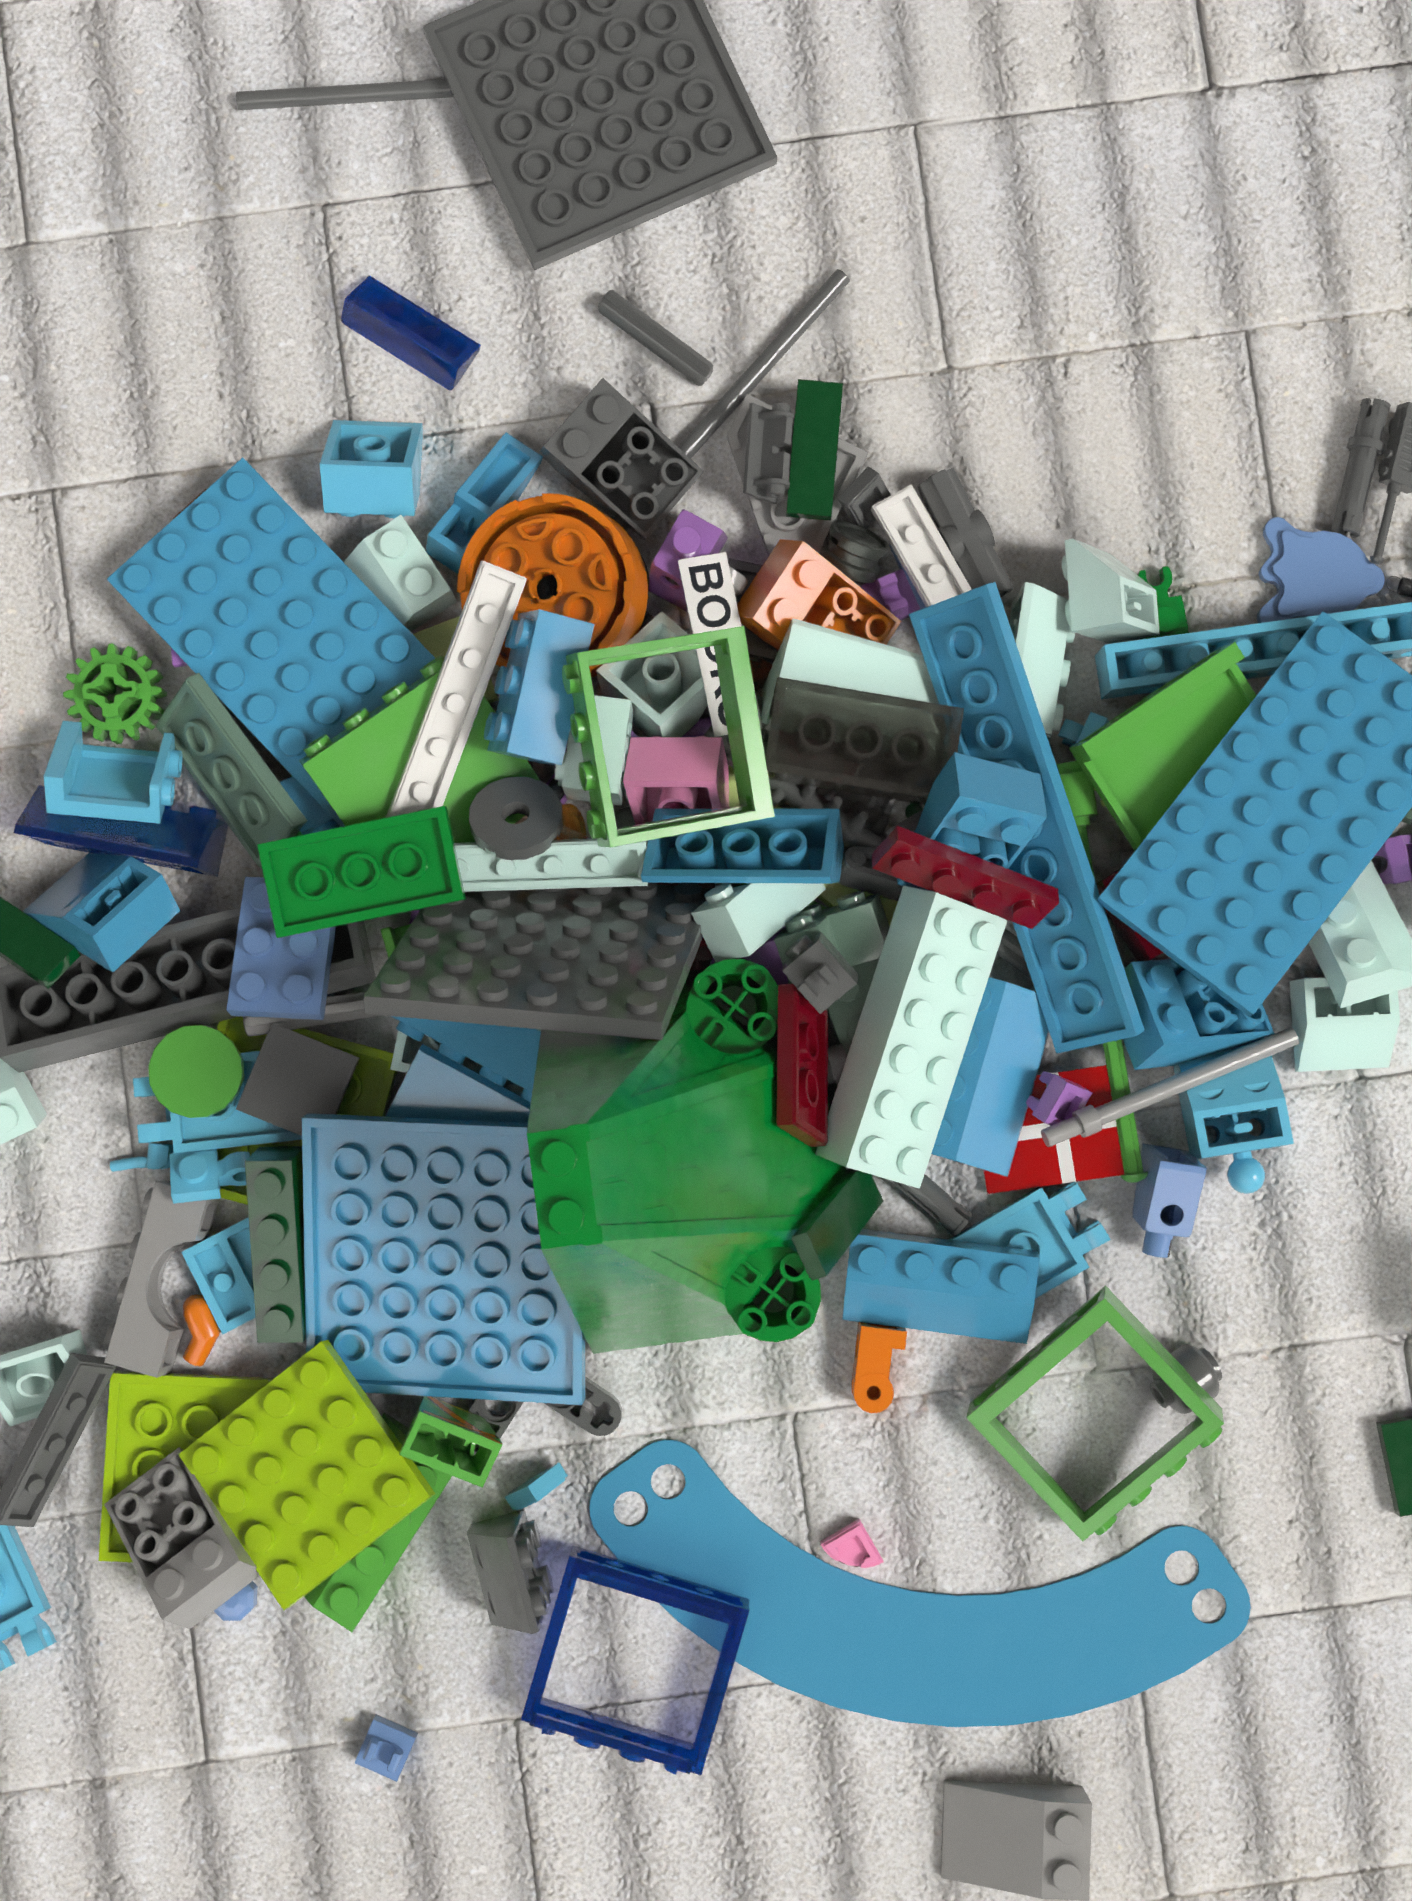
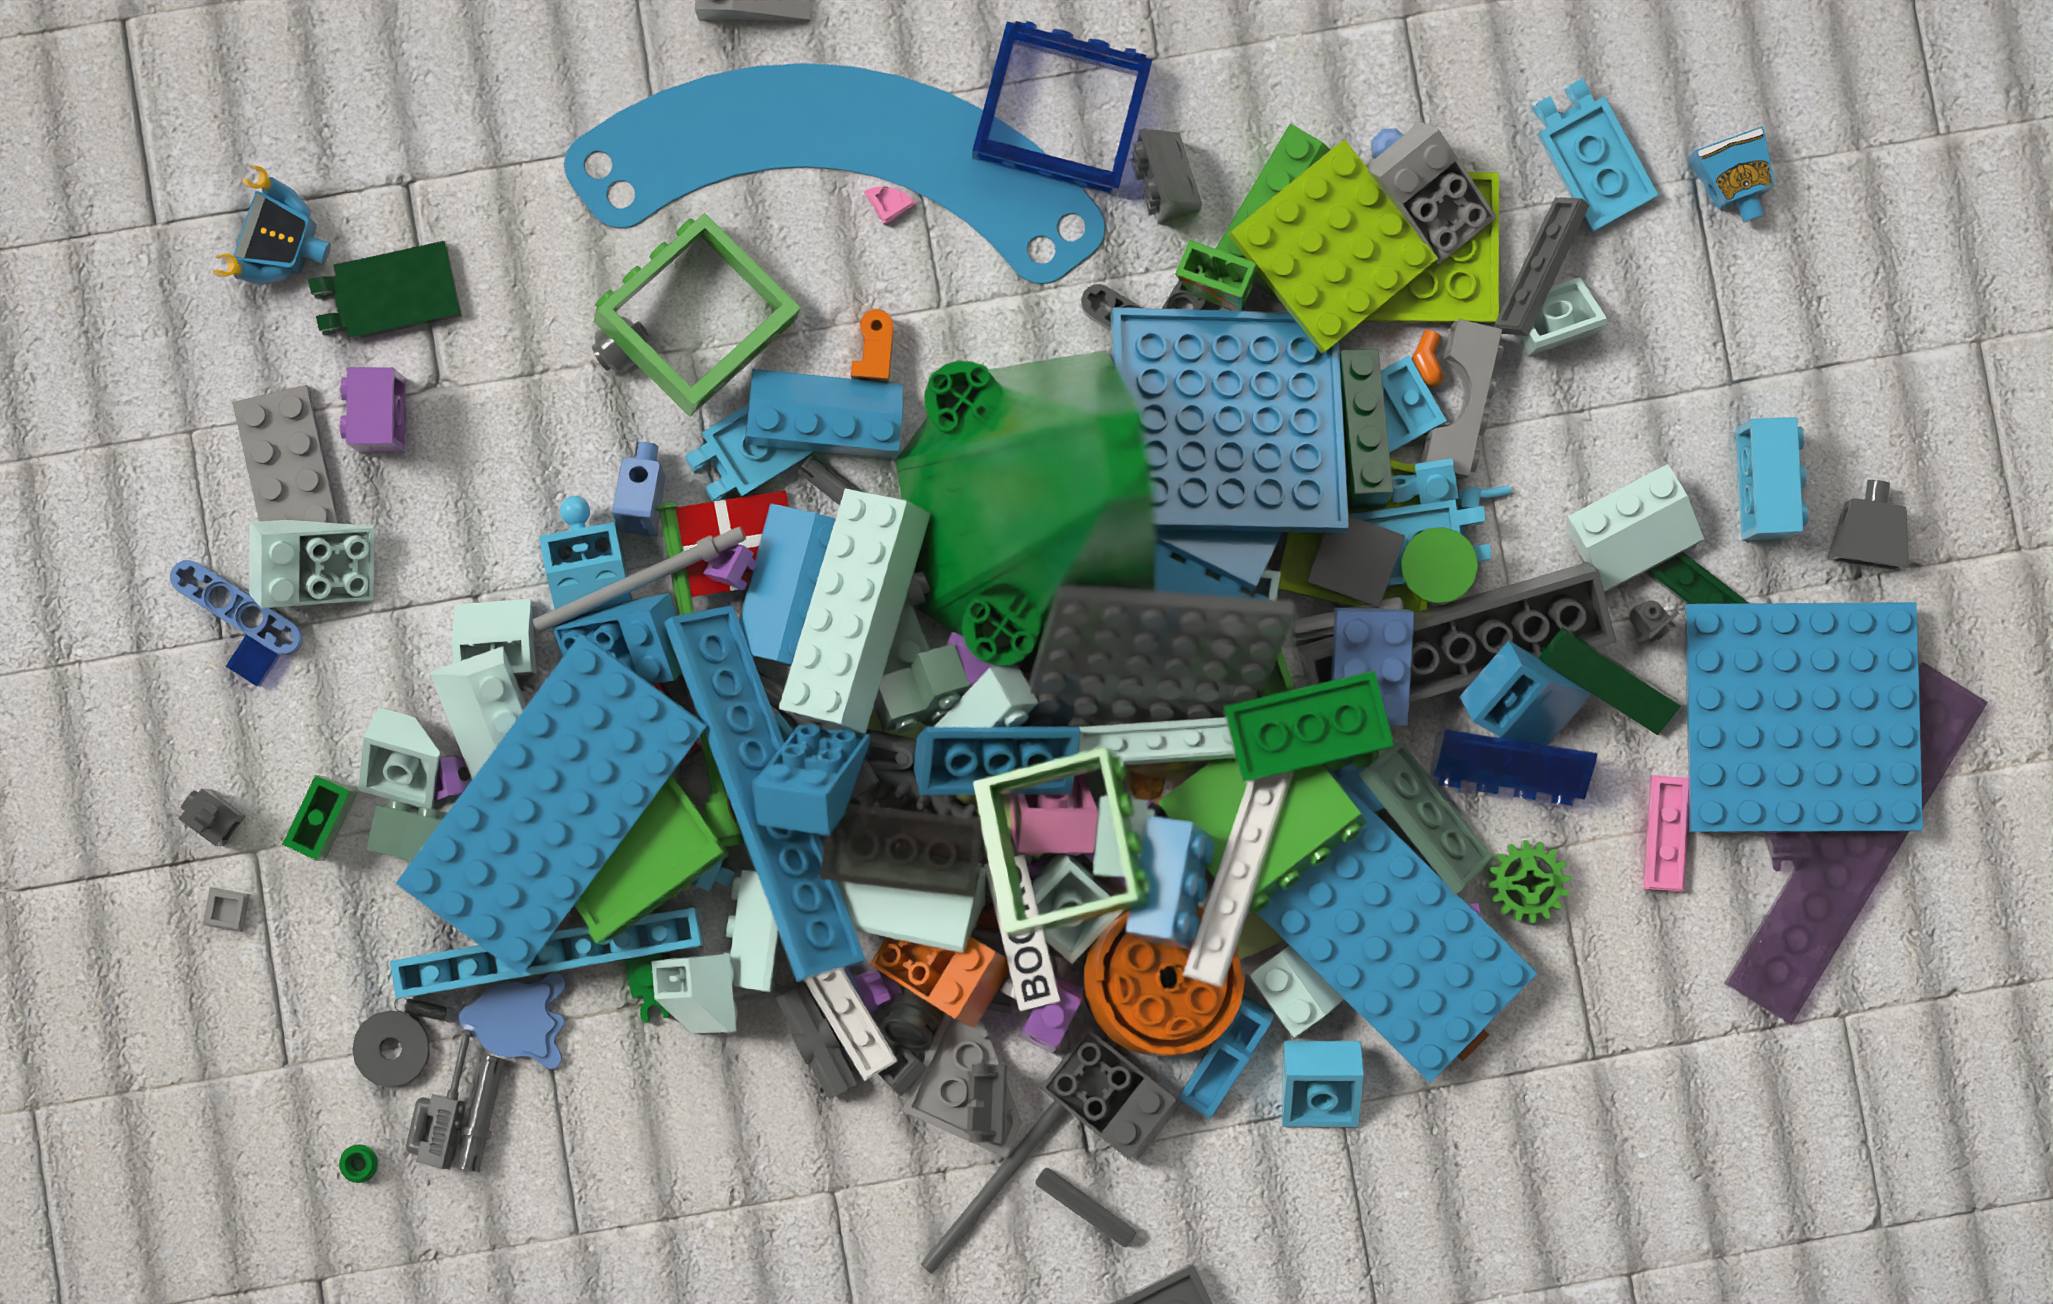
camera: 175 degrees right, 0 degrees up
(110, 779) = (1523, 806): medium azure panel -> none
(386, 1747) = (1260, 32): medium blue tile -> none
(409, 332) = (1296, 1206): clear blue slope -> none
(510, 797) = (1185, 798): dark grey tile -> none
(536, 1487) = (1147, 241): medium azure tile -> none
(802, 1068) = (943, 581): dark red tile -> none
(814, 449) = (947, 1109): dark green tile -> none
(819, 971) = (933, 656): dark grey brick -> none
(836, 1222) = (912, 457): dark green tile -> none
(964, 877) = (816, 737): dark red plate -> none

